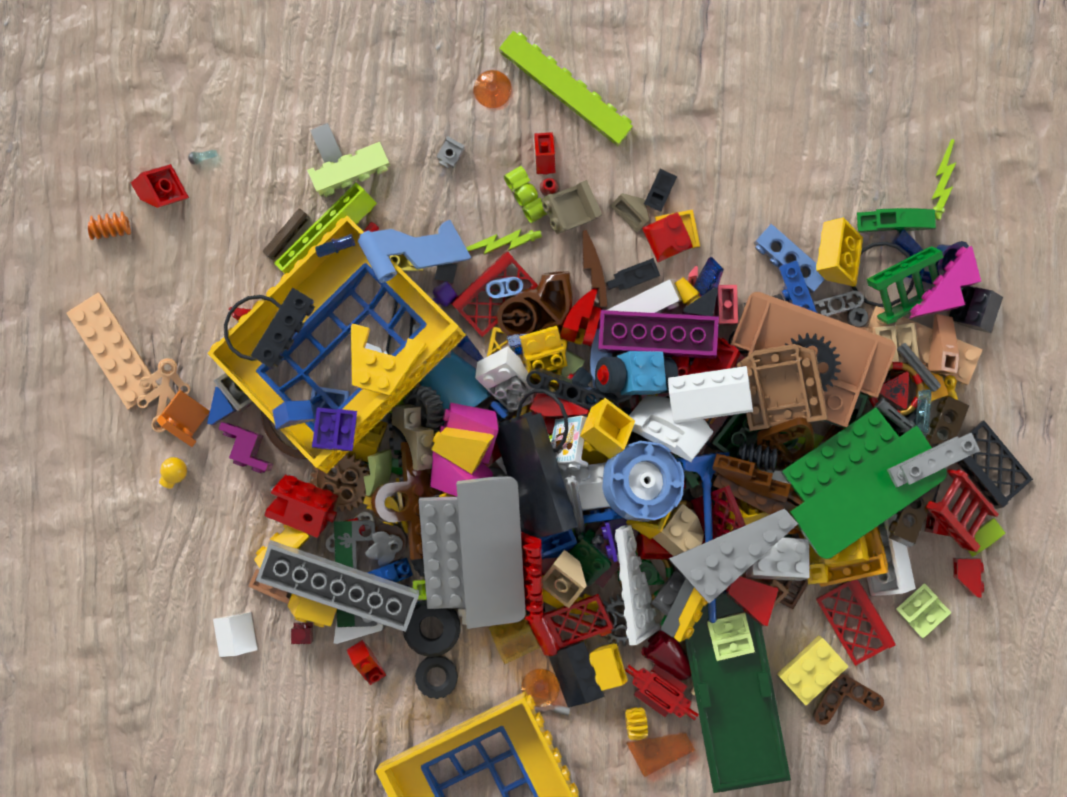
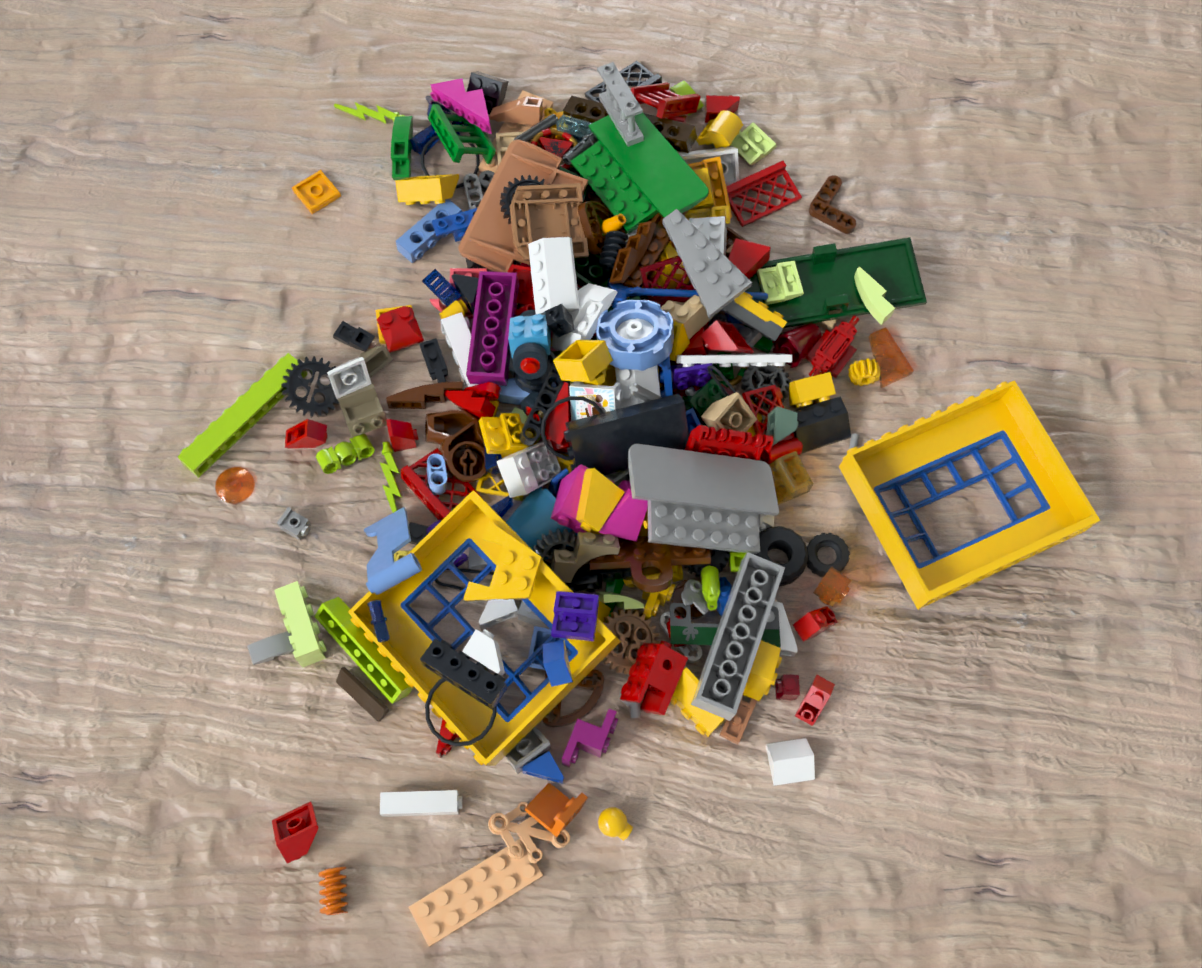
camera: 90 degrees left, 20 degrees down
(186, 296) = (420, 803): none -> white brick
(196, 157) = (268, 790): clear light blue piece -> none
(291, 659) = (815, 700): none -> red slope
(302, 347) = (485, 650): none -> white slope
(392, 560) = (710, 586): none -> lime piece
(398, 680) = (832, 587): none -> clear orange brick
(545, 190) = (339, 432): red cone -> none
(546, 249) = (401, 435): none -> red slope
(551, 686) = (827, 450): clear orange dish -> none
(562, 632) = (781, 423): none -> sand green slope
(593, 579) = (723, 377): none -> black piece
(598, 137) = (296, 381): none -> black gear
(604, 191) = (349, 377): none -> white slope
(652, 578) = (725, 338): none -> red slope
(658, 402) = (557, 316): none -> black brick
(712, 734) = (873, 296): none -> yellowish green slope
(788, 455) = (613, 223): none -> light orange cone
(812, 670) = (806, 226): light yellow brick -> none
(836, 132) = (316, 192): none -> light orange tile
(933, 575) = (721, 130): none -> yellow brick

